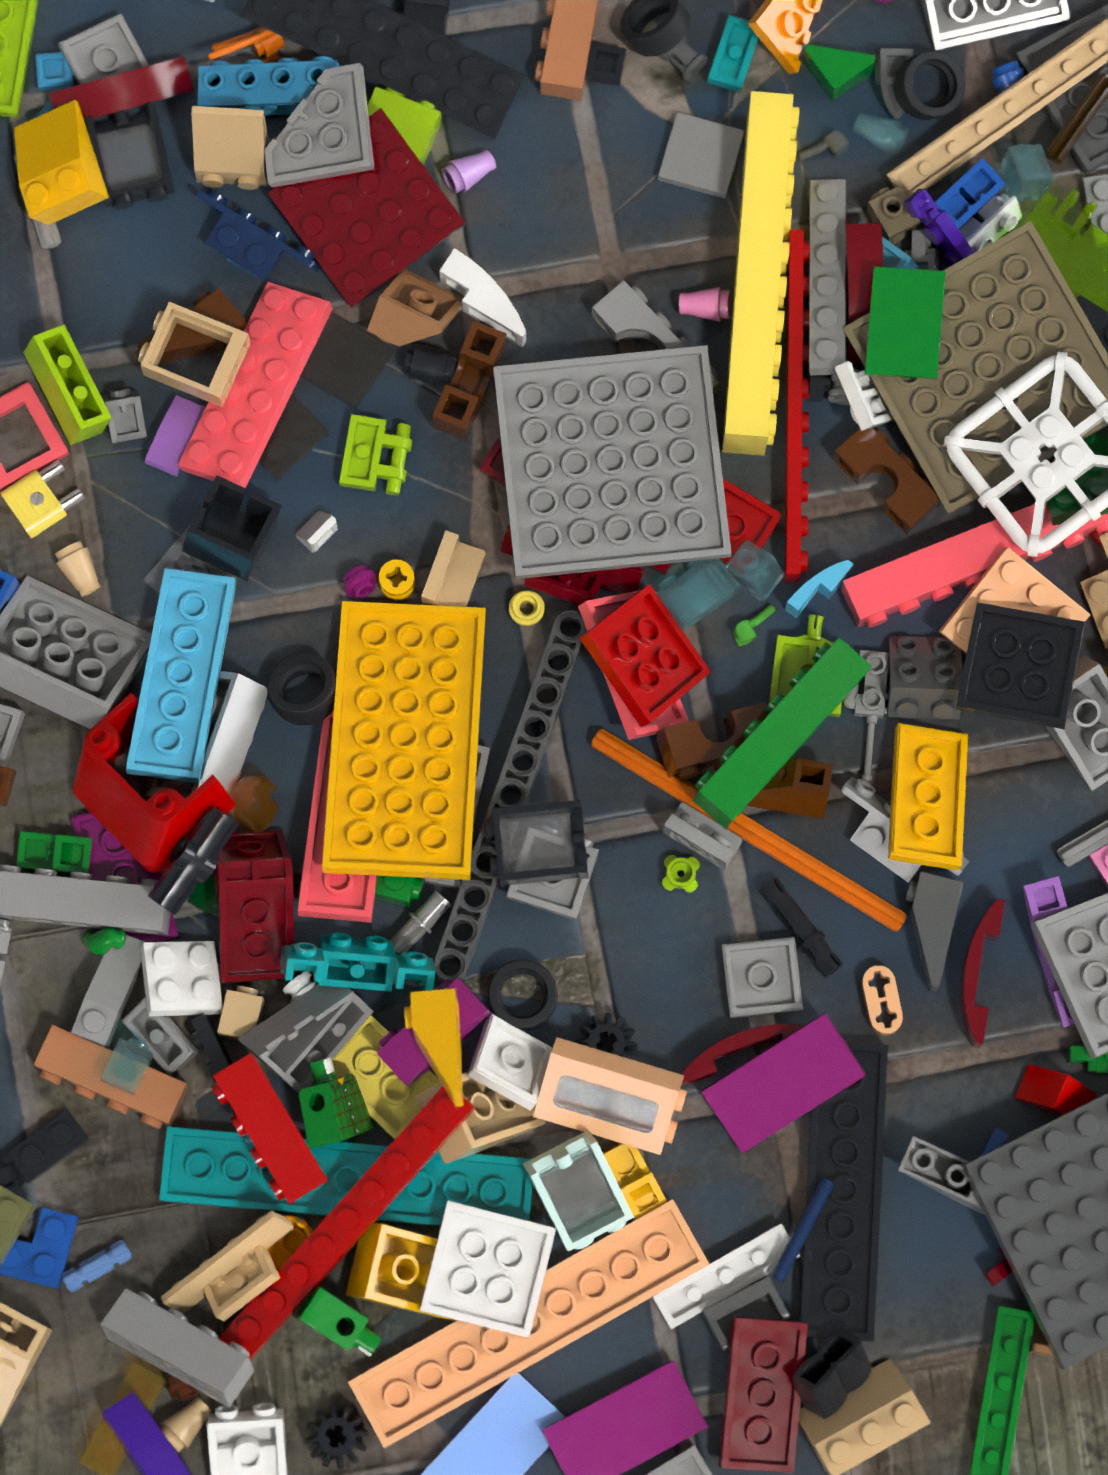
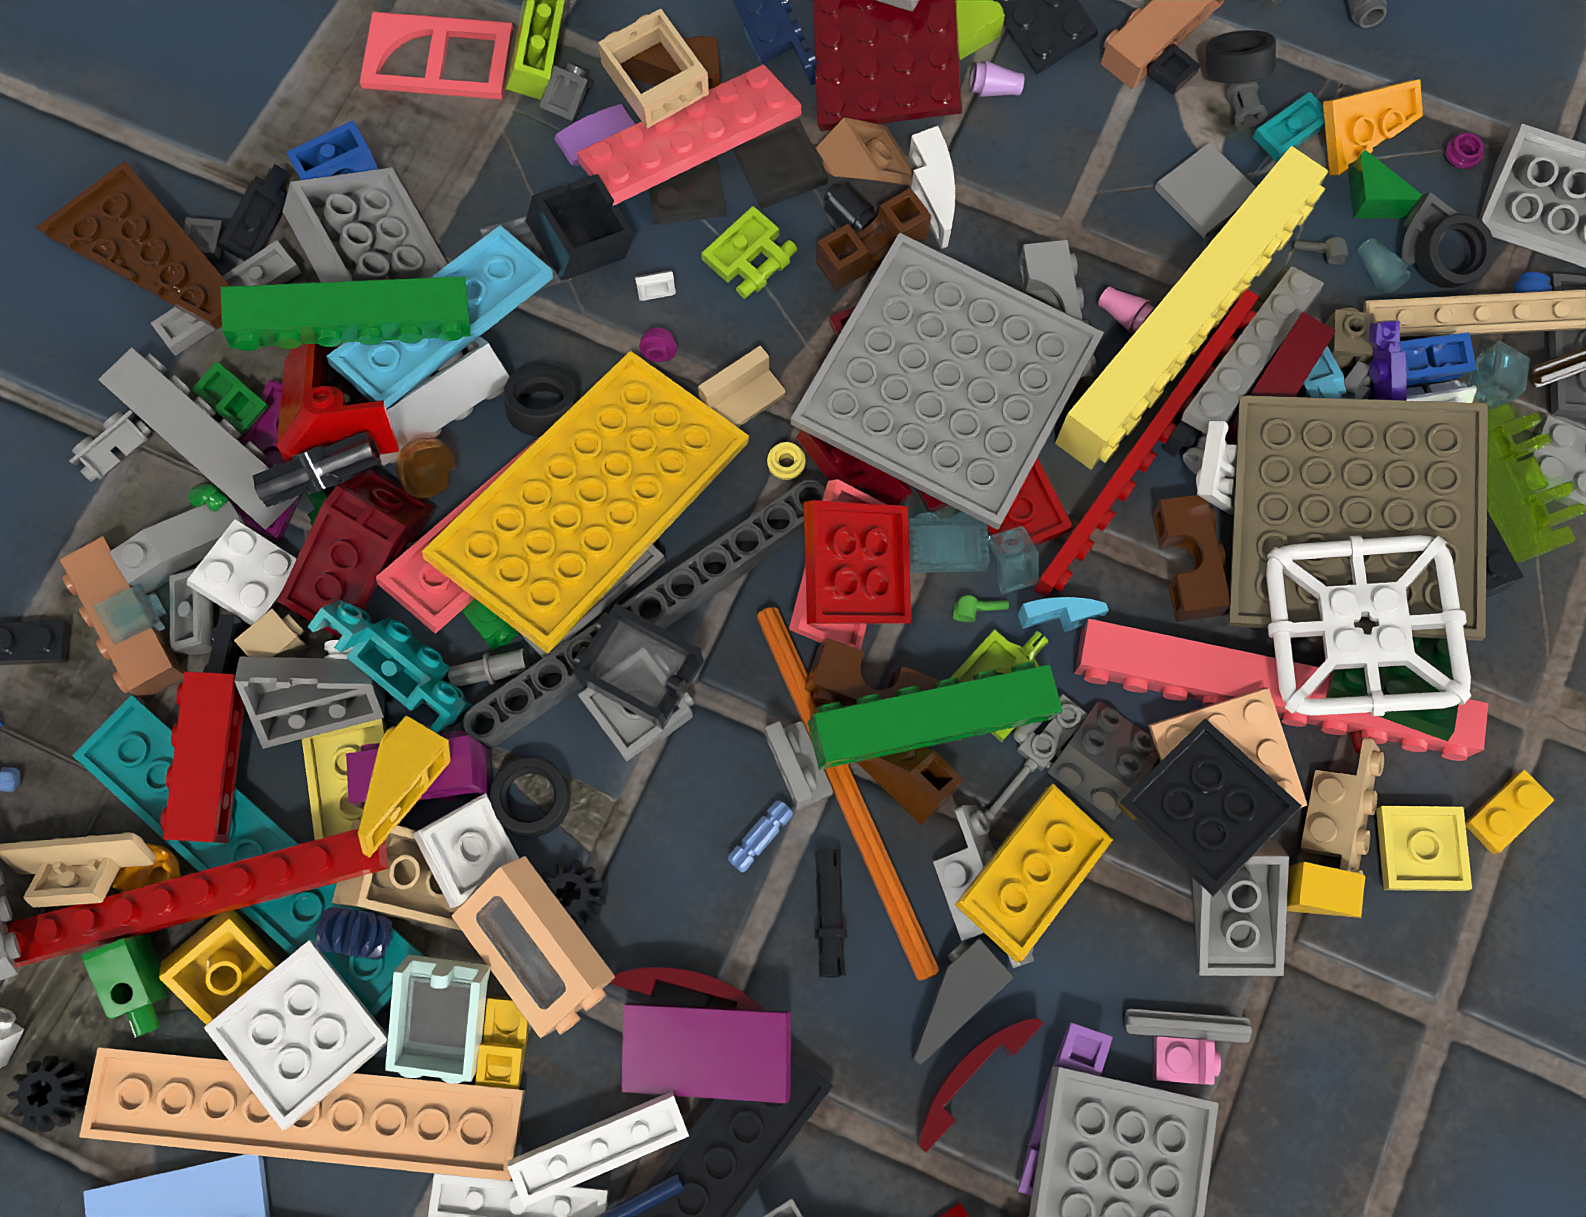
camera: 35 degrees right, 5 degrees down
(35, 503) = (443, 114): light yellow piece -> none
(78, 568) = (435, 185): tan cone -> none
(122, 724) = (345, 312): none -> green brick
(332, 1106) = (276, 778): green torso -> none
(396, 587) = (690, 373): yellow wheel -> none
(477, 1173) = (353, 933): none -> dark blue gear
(688, 866) = (756, 797): lime plate -> none
(711, 907) = (760, 836): none -> medium blue axle
(755, 1198) = (597, 1149): none -> white plate
(762, 977) = (760, 935): light grey plate -> none
(890, 998) = (869, 1040): light nougat beam -> none
(905, 323) = (1303, 424): green tile -> none

